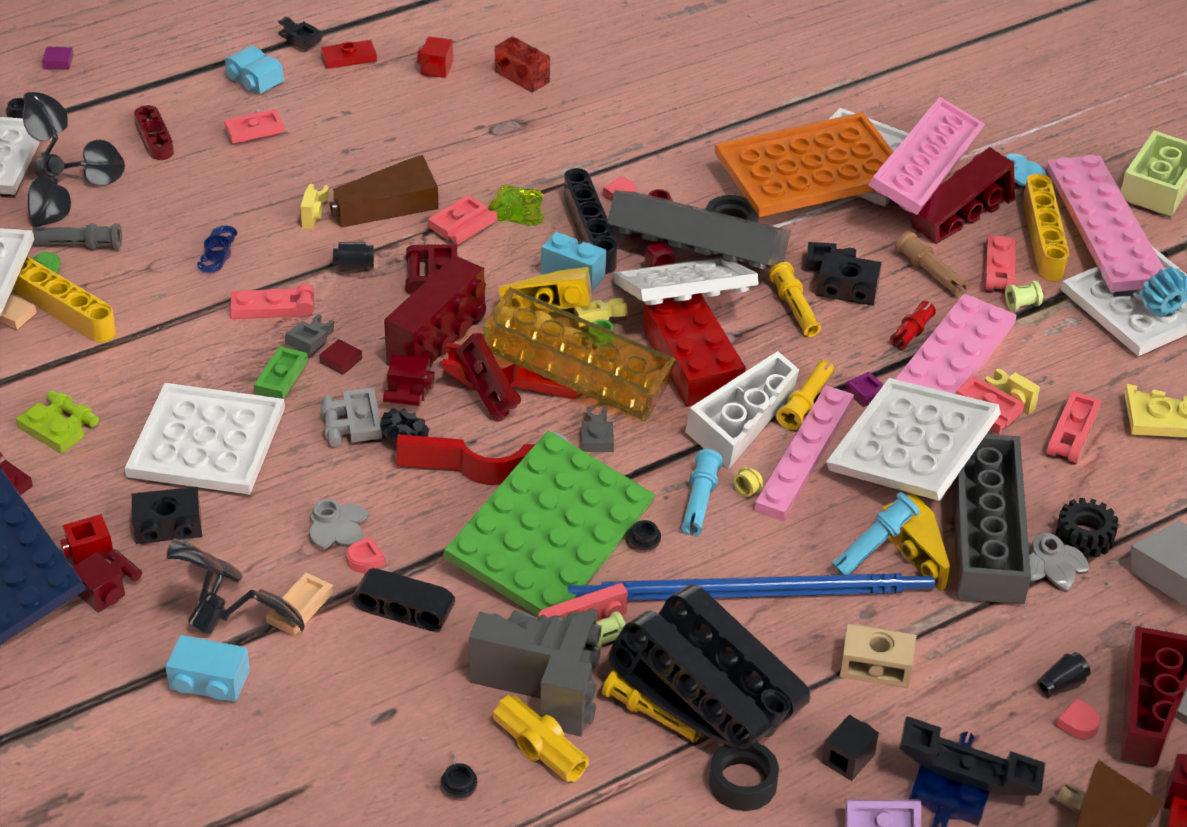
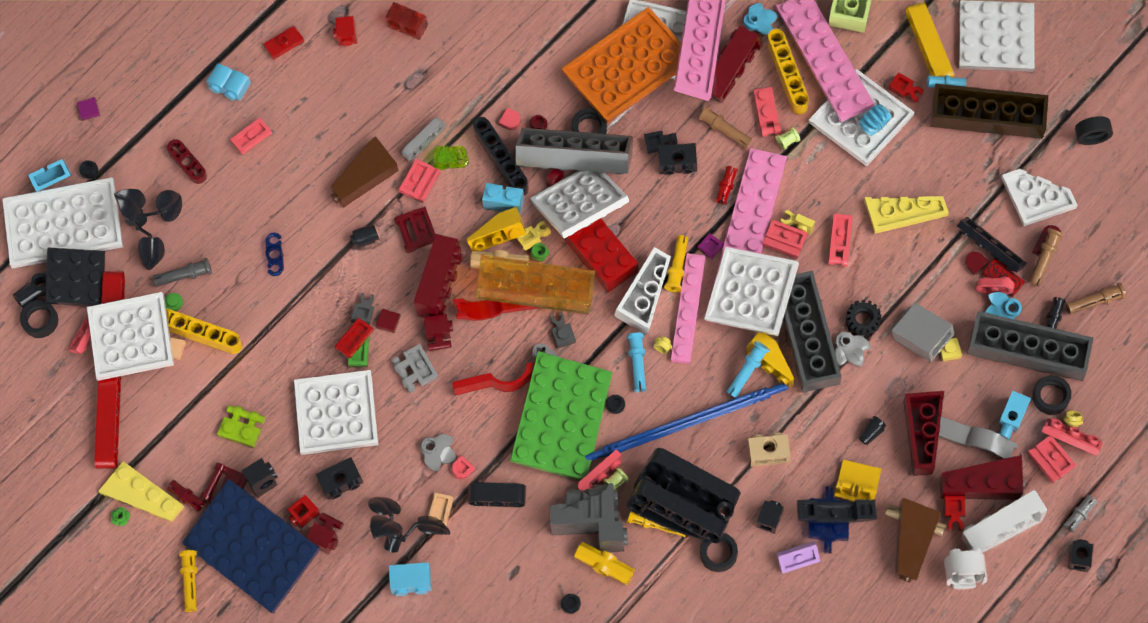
camera: 10 degrees left, 25 degrees up
(45, 476) = (260, 477): none -> black brick
(272, 303) = (328, 289): coral plate -> none
(278, 352) = (354, 338): none -> red plate
(301, 35) = (244, 35): black plate -> none
(312, 205) = (320, 201): light yellow plate -> none
(410, 425) = (453, 374): black gear -> none
(488, 377) = (487, 318): dark red plate -> none
(506, 172) = (423, 139): none -> light grey beam
(791, 290) = (644, 179): yellow pin -> none
(1020, 734) = (857, 481): none -> yellow hinge
(1080, 720) = (886, 457): coral tile -> none

